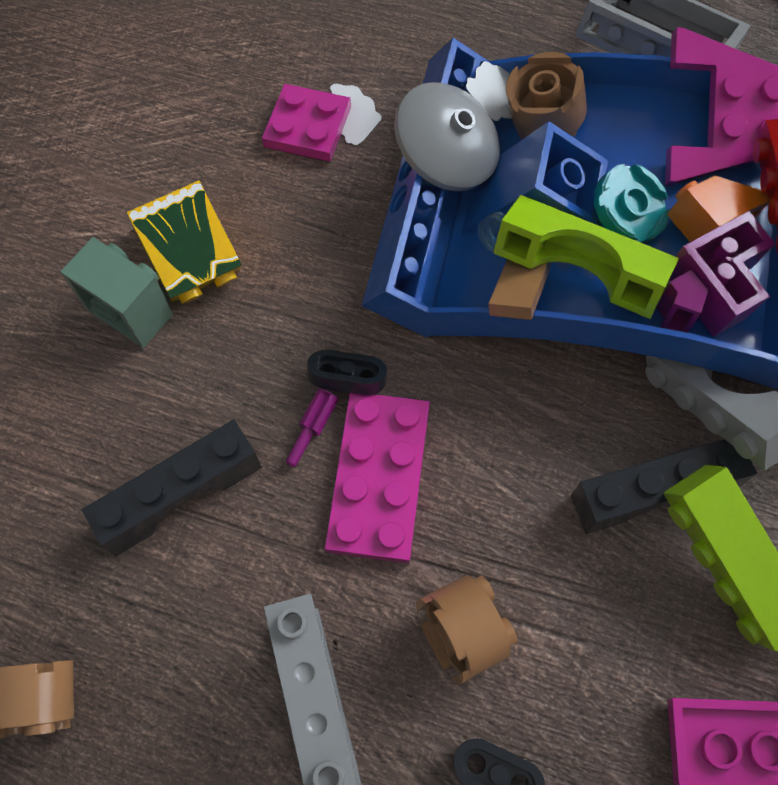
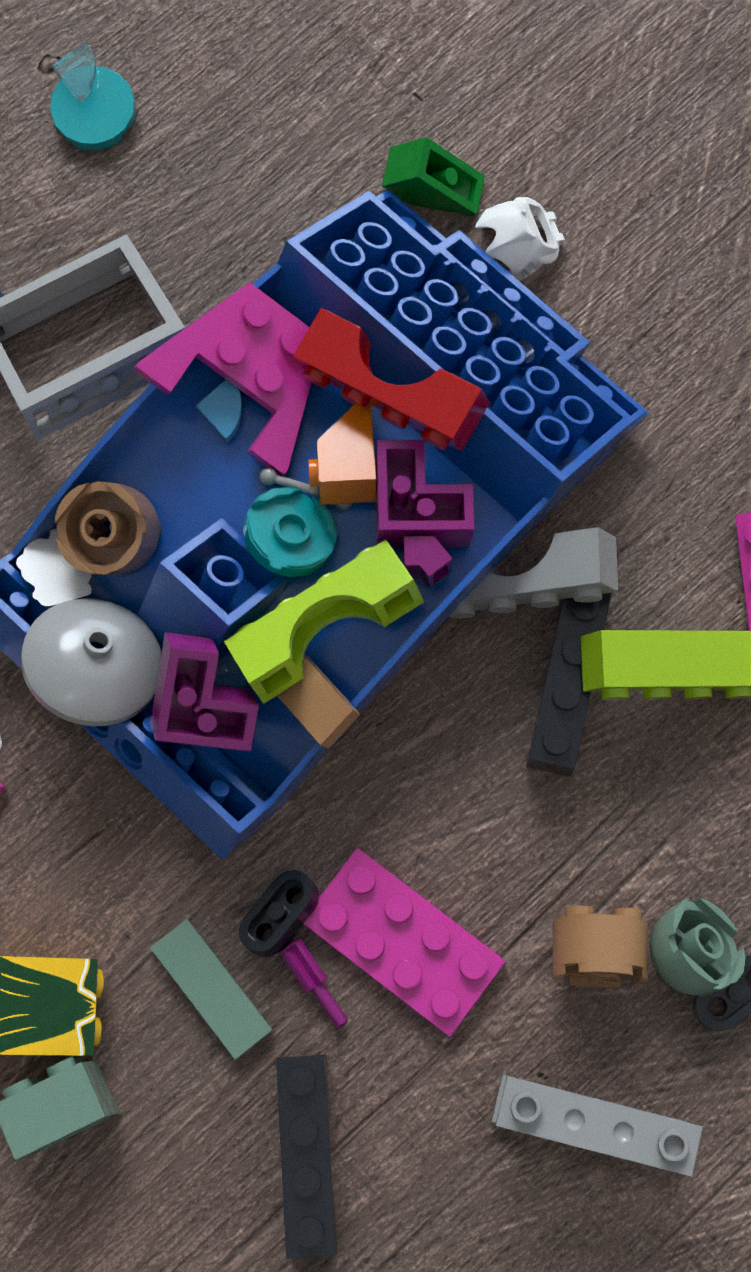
camera: 55 degrees left, 10 degrees up
(264, 360) = (211, 989): none -> sand green tile
(460, 196) = (190, 705): none -> magenta brick
(514, 713) = (696, 948): none -> sand green cylinder
(661, 173) = (269, 476): none -> light grey hinge
(685, 121) = (223, 409): none -> dark azure tile

